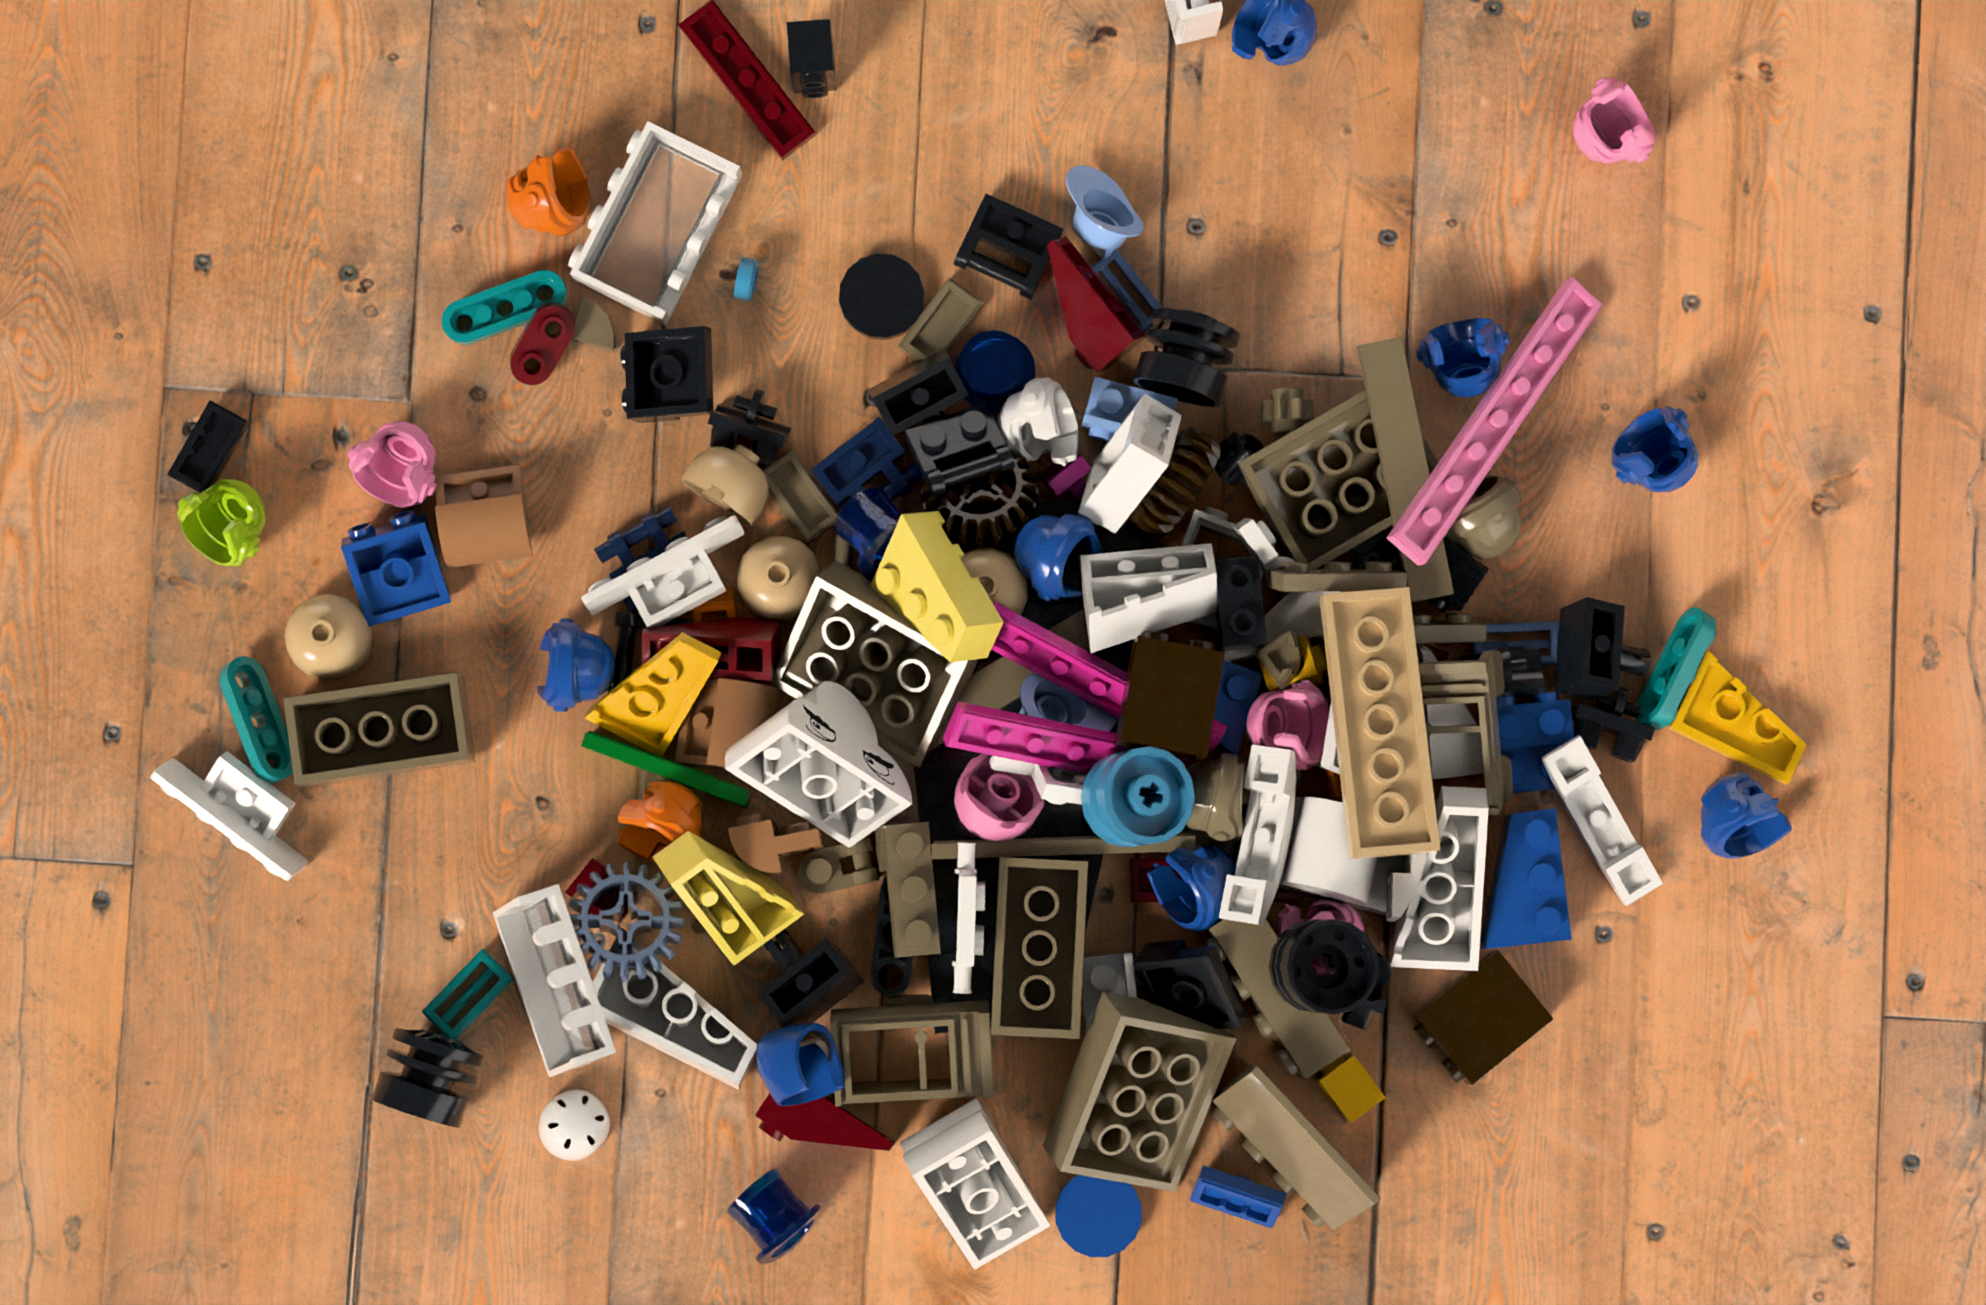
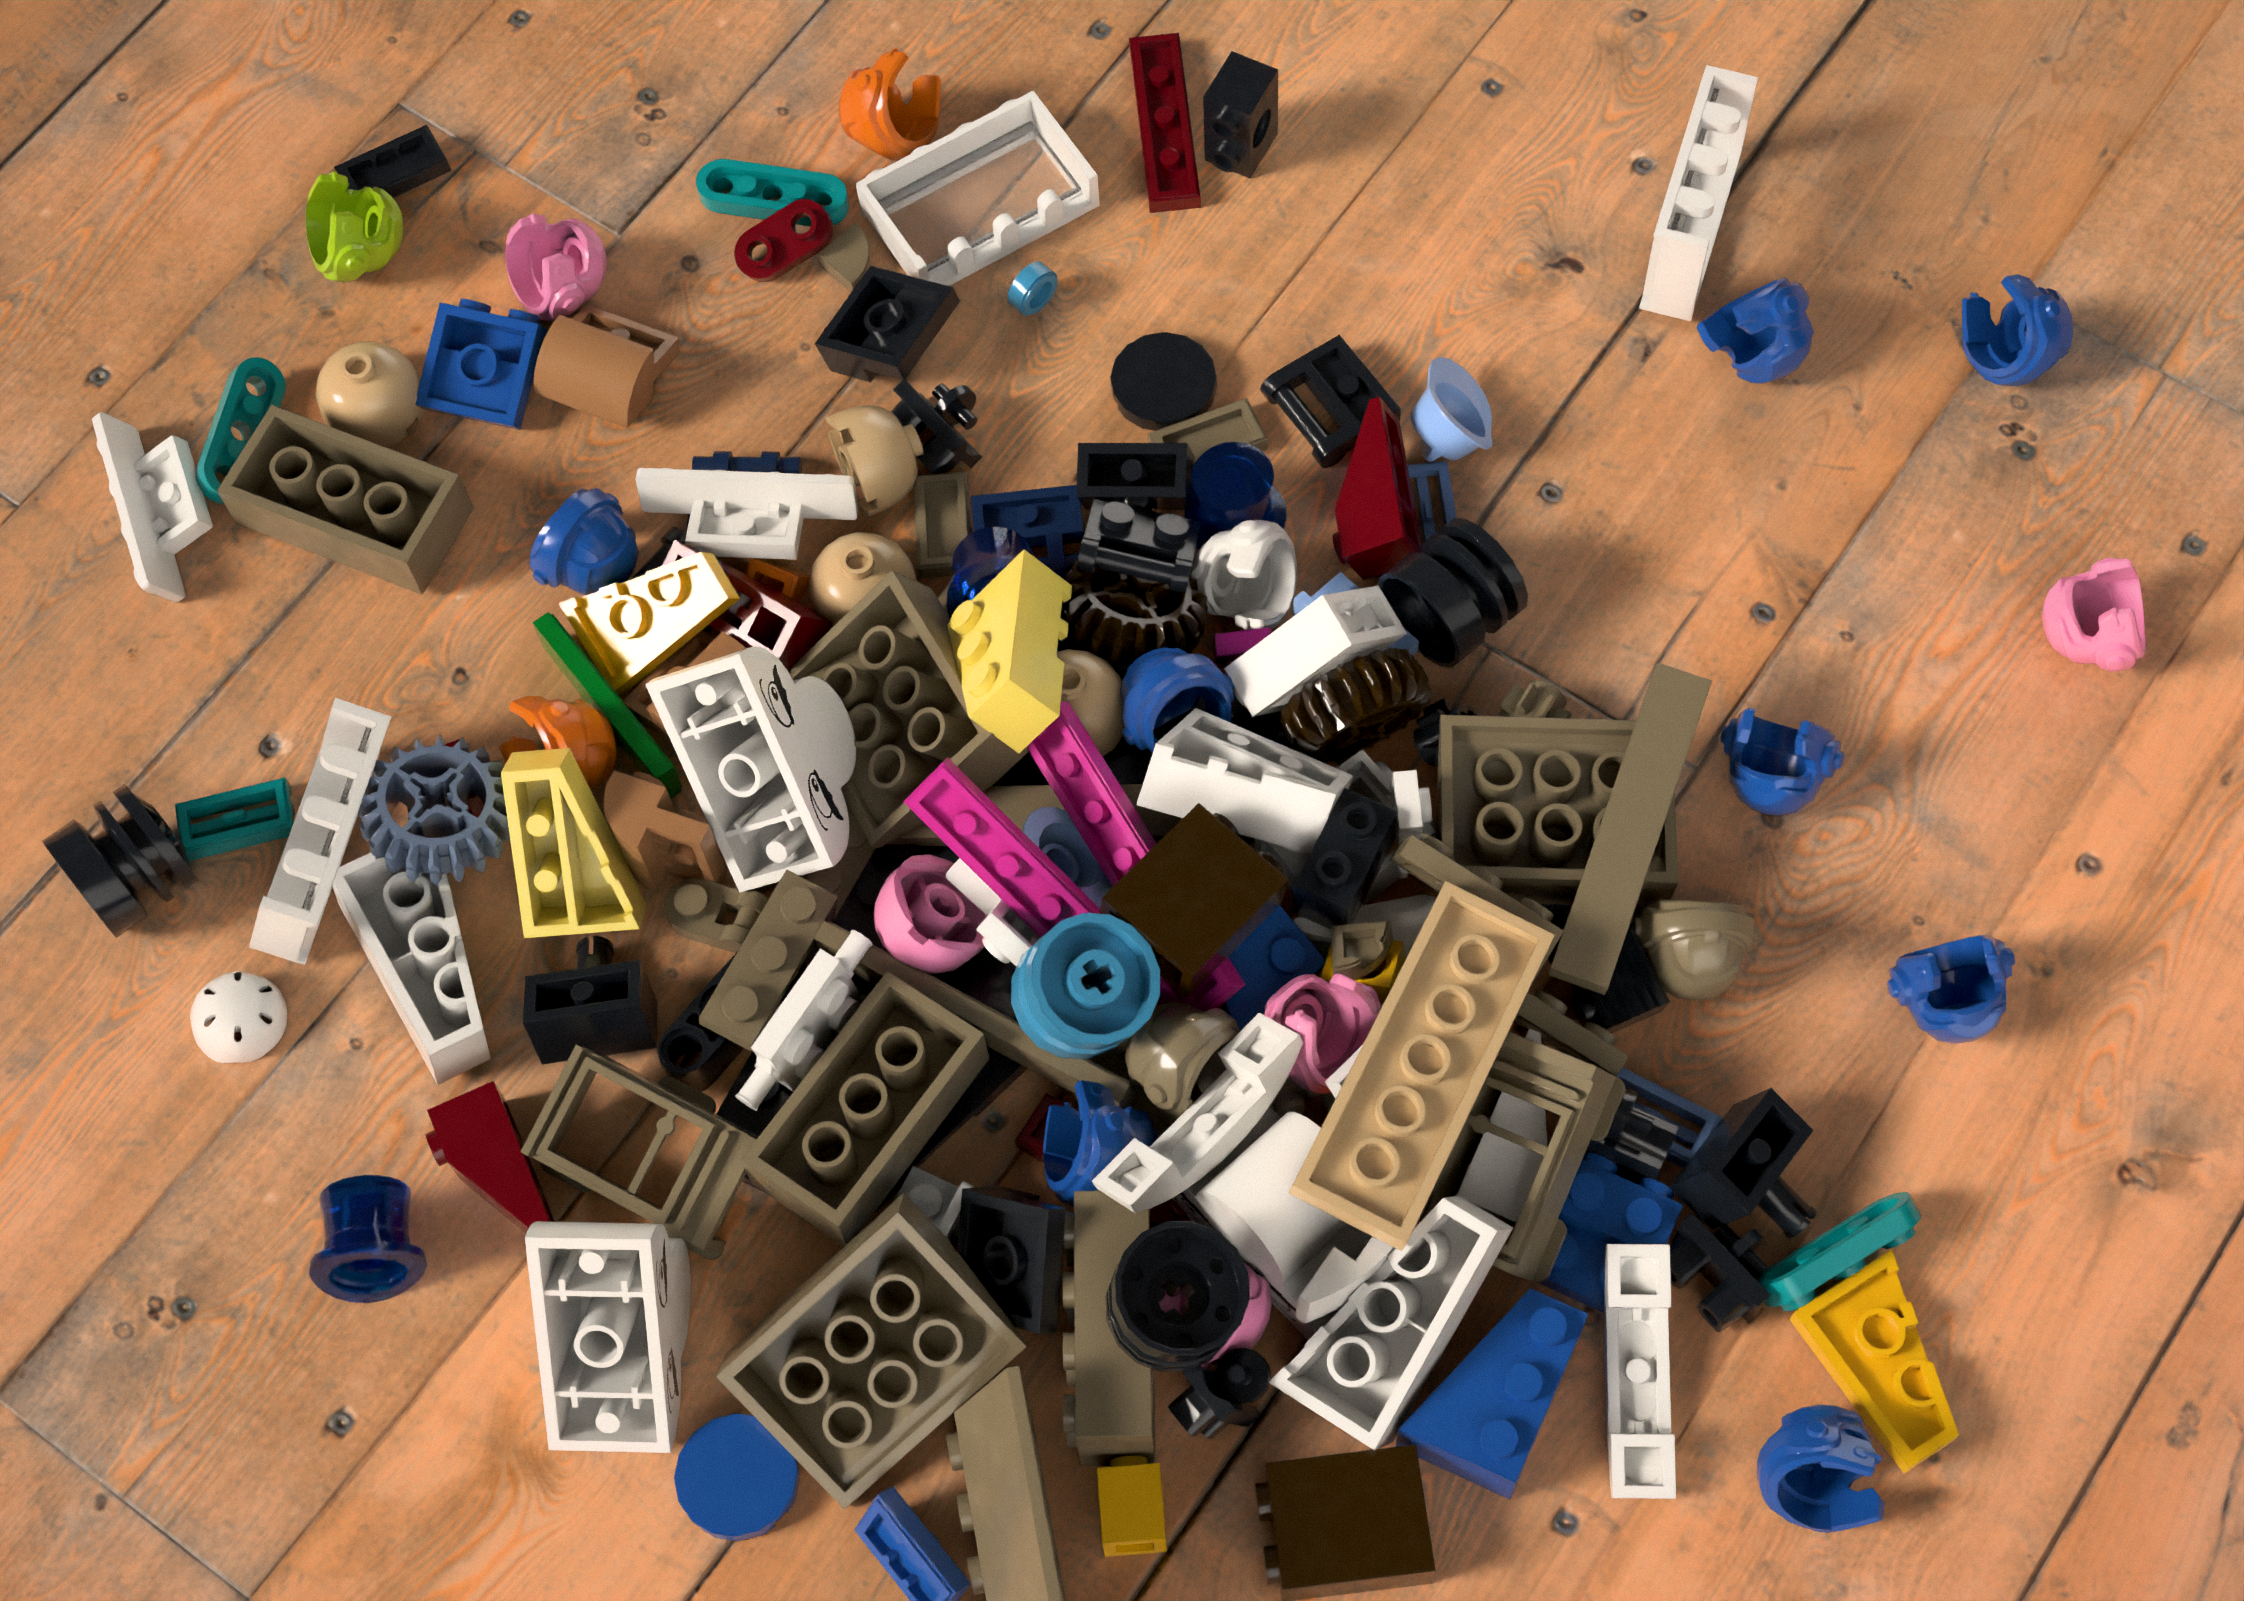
camera: 40 degrees right, 20 degrees down
(799, 1063) = (508, 1071): blue piece -> none
(1494, 422) = (1768, 839): bright pink tile -> none

